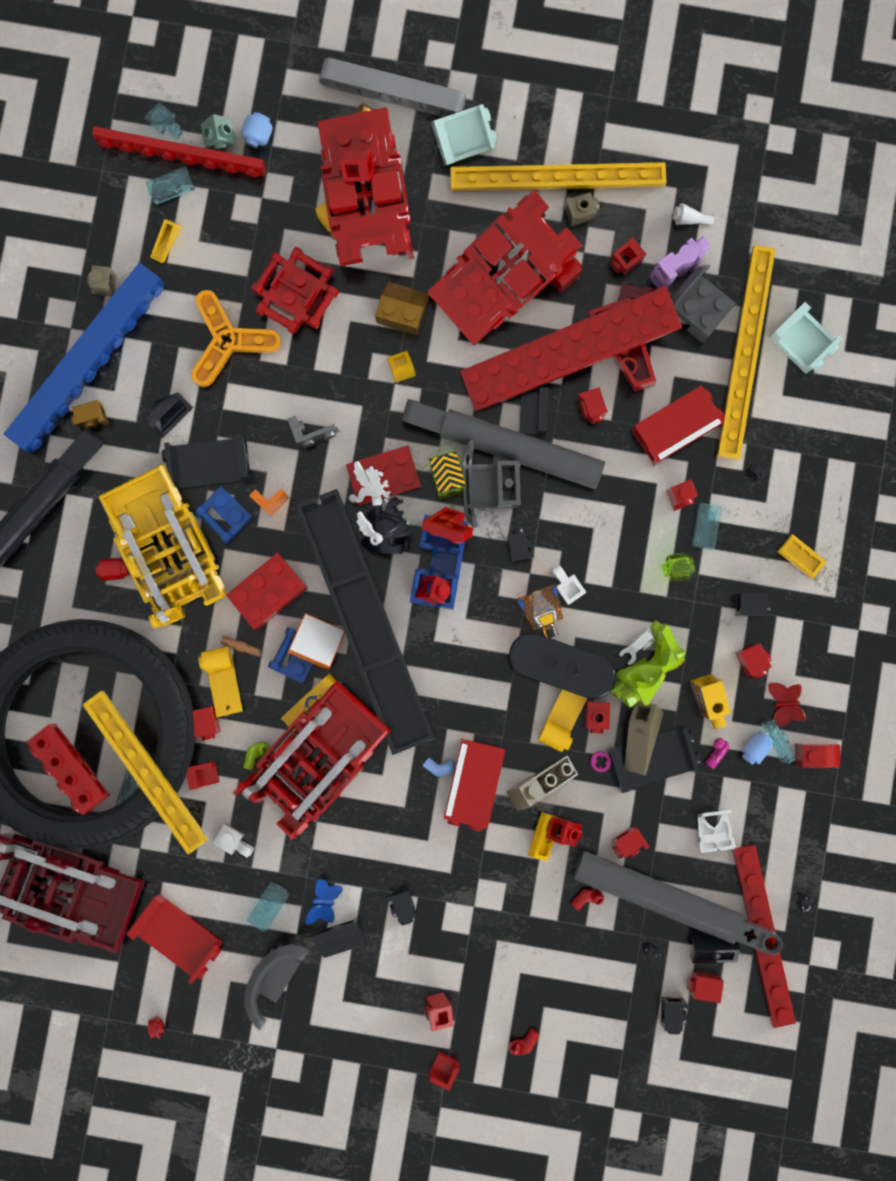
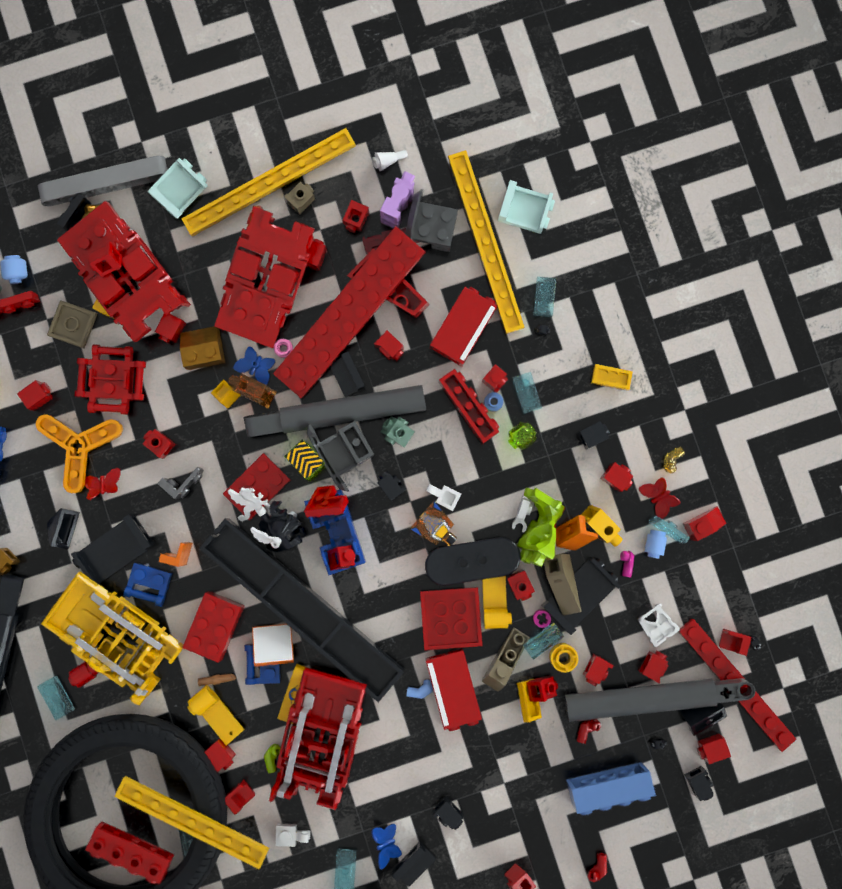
camera: 25 degrees left, 0 degrees up
(72, 578) = (56, 697): none -> clear light blue plate
(212, 267) = (35, 395): none -> red brick
(233, 393) = (106, 484): none -> red piece
(285, 216) = (72, 324): none -> dark tan tile
(313, 385) = (164, 446): none -> red brick
(346, 105) = (74, 212): none -> black plate
(381, 270) = (170, 328): none -> red brick
(431, 376) = (252, 389): none -> clear orange torso
(447, 352) = (256, 364): none -> blue piece
(483, 345) = (281, 342): none -> bright pink plate
(509, 712) = (451, 618): none -> red plate
(555, 494) = (397, 431): none -> sand green brick
(581, 968) = (610, 788): none -> medium blue brick
(590, 784) = (543, 640): none -> clear light blue plate
(611, 817) = (572, 660): none -> yellow wheel
(640, 508) = (468, 406): none -> red brick
(663, 522) = (489, 406): none -> medium blue plate
(680, 694) = (573, 534): none -> orange panel
(690, 870) = (654, 666): none -> red window
(776, 439) = (544, 296): none -> clear light blue plate
(785, 890) = (735, 642): none -> red panel
(817, 671) = (670, 459): none -> clear yellow arm

